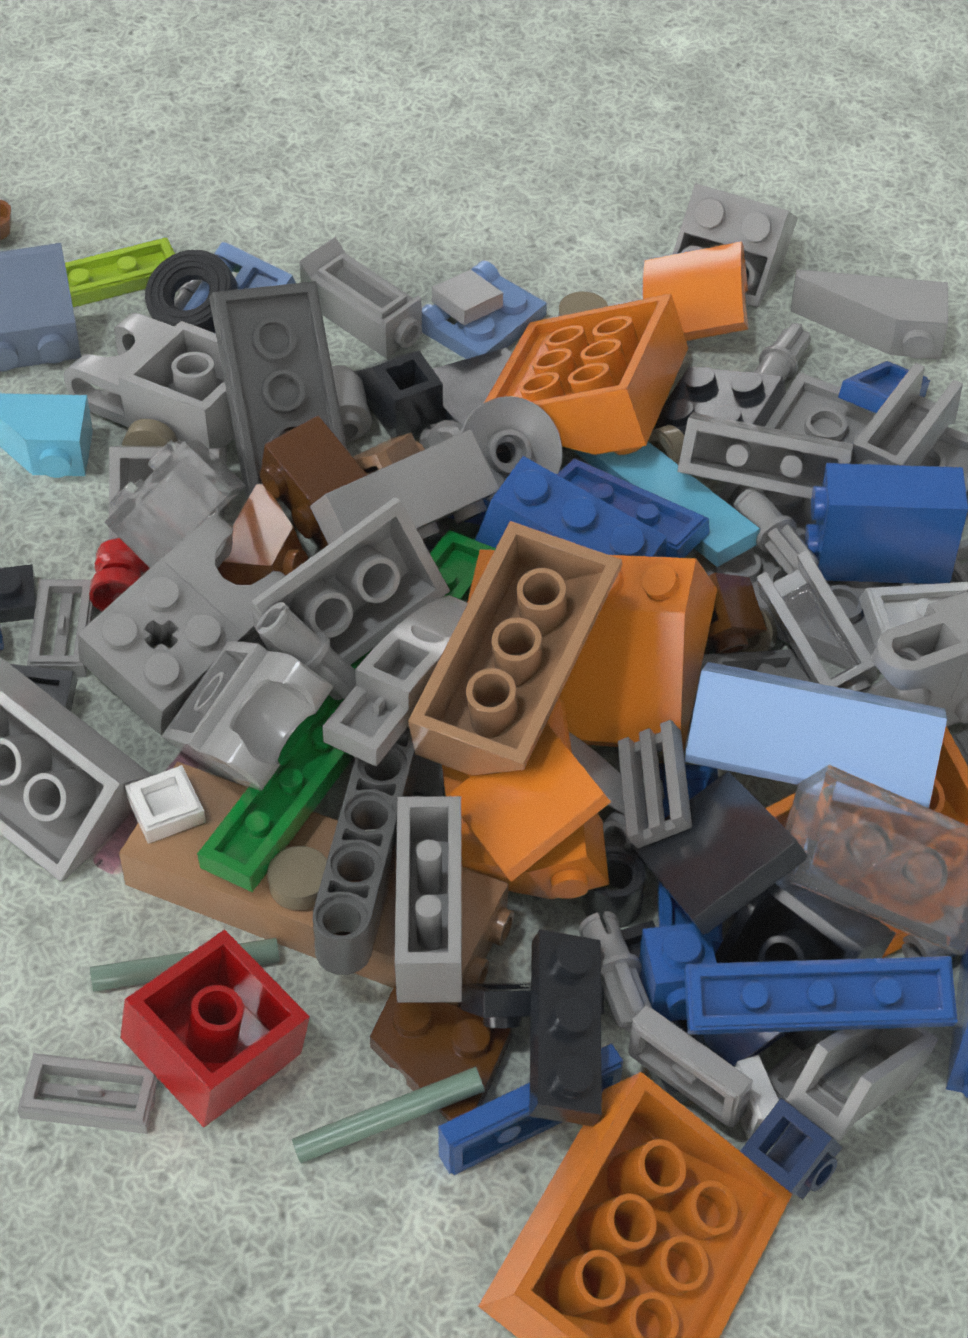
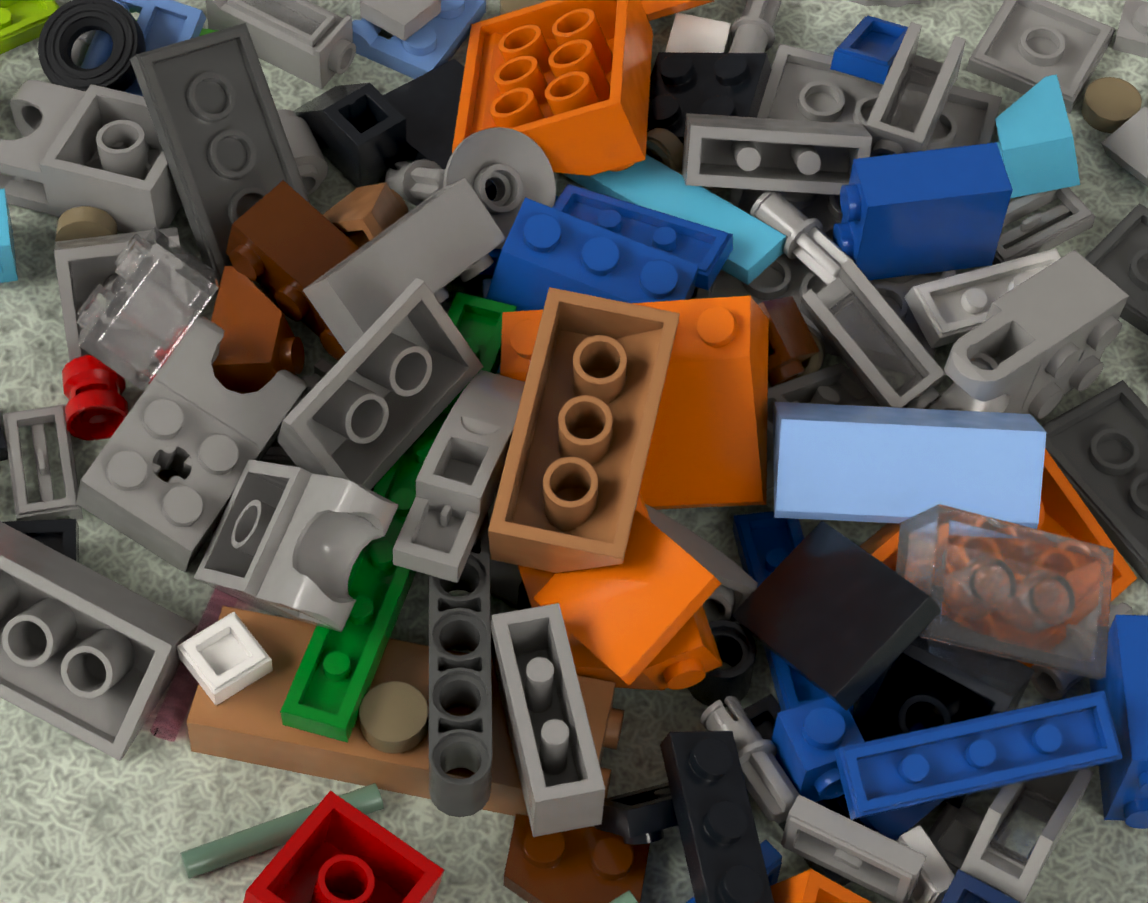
camera: 15 degrees left, 5 degrees up
(310, 648) = (351, 460): light grey axle -> none
(633, 788) = (731, 507): light grey tile -> none
(729, 356) = (698, 35): none -> white tile

